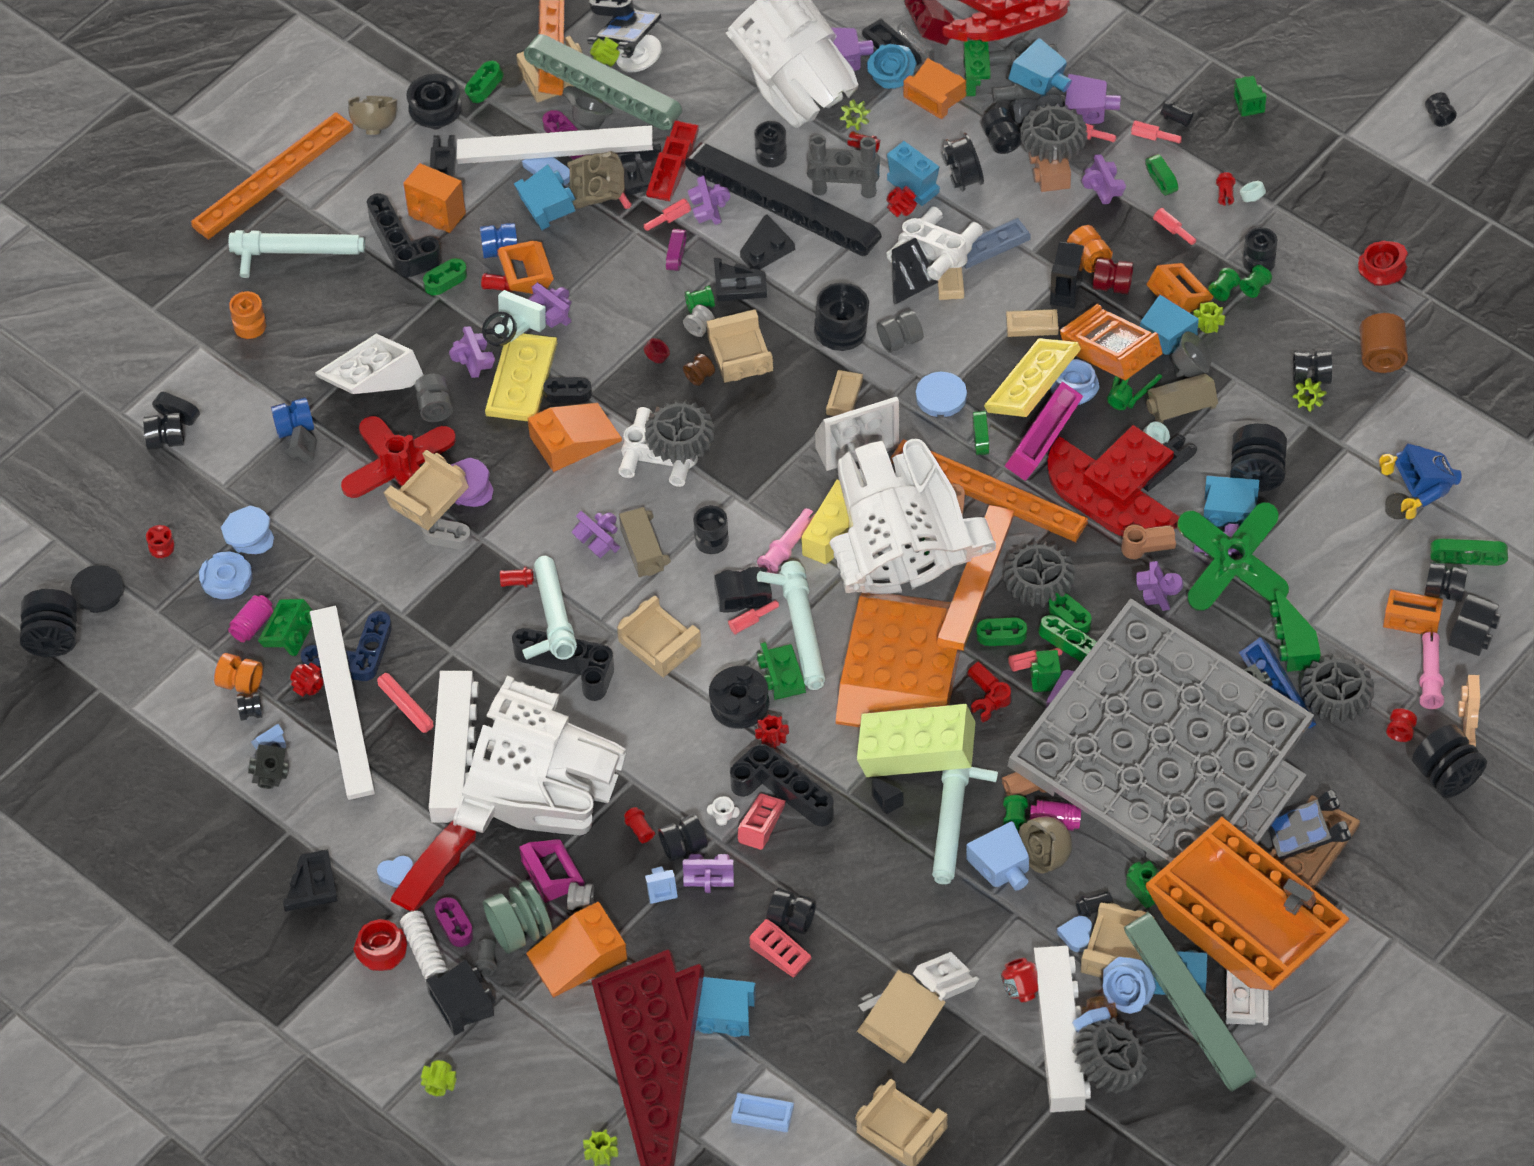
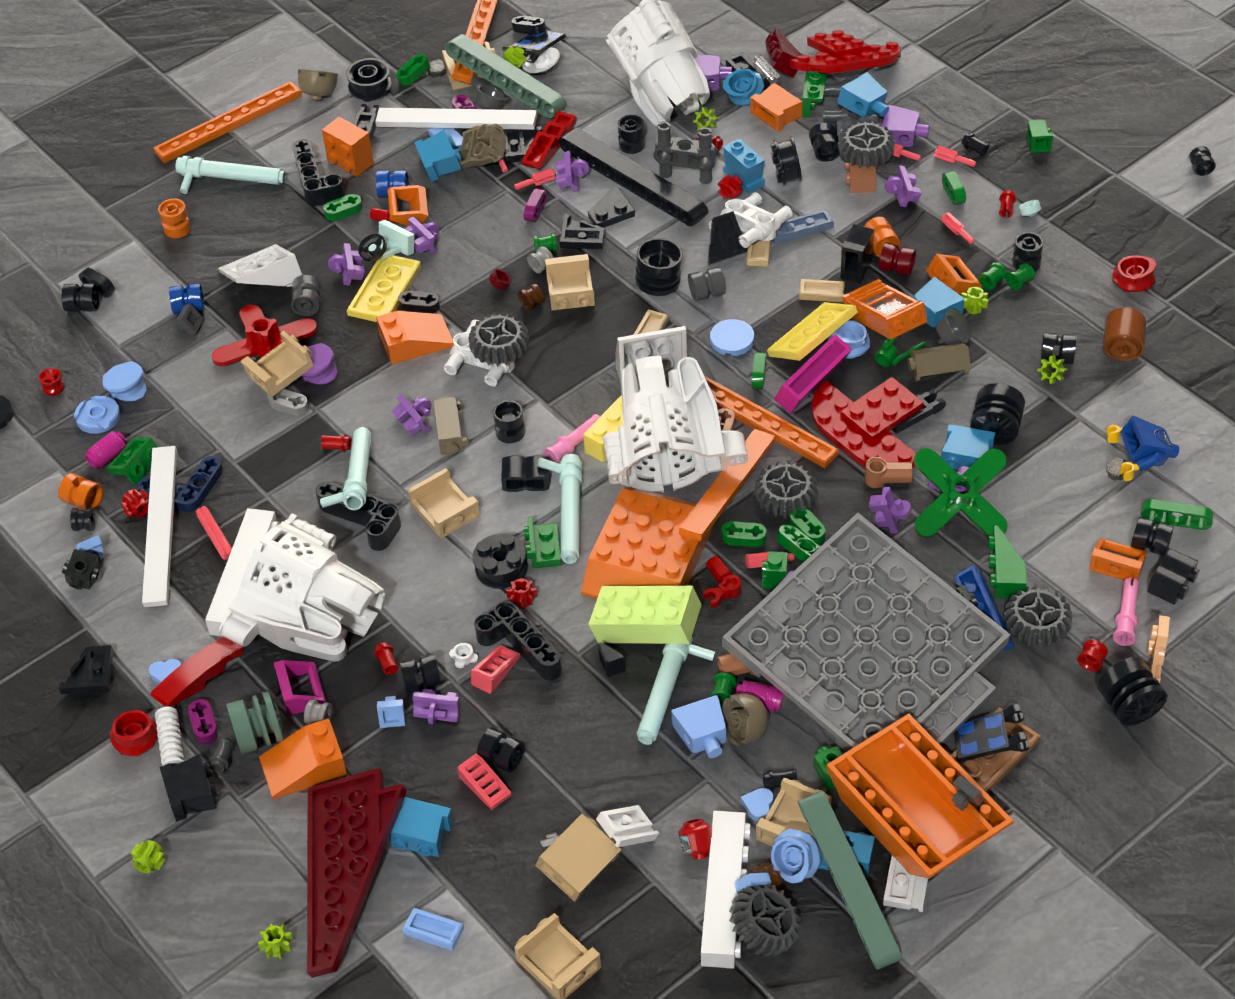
camera: 10 degrees right, 5 degrees down
(750, 617) = (527, 497): coral axle -> none
(1158, 432) = (913, 385): light aqua tile -> none

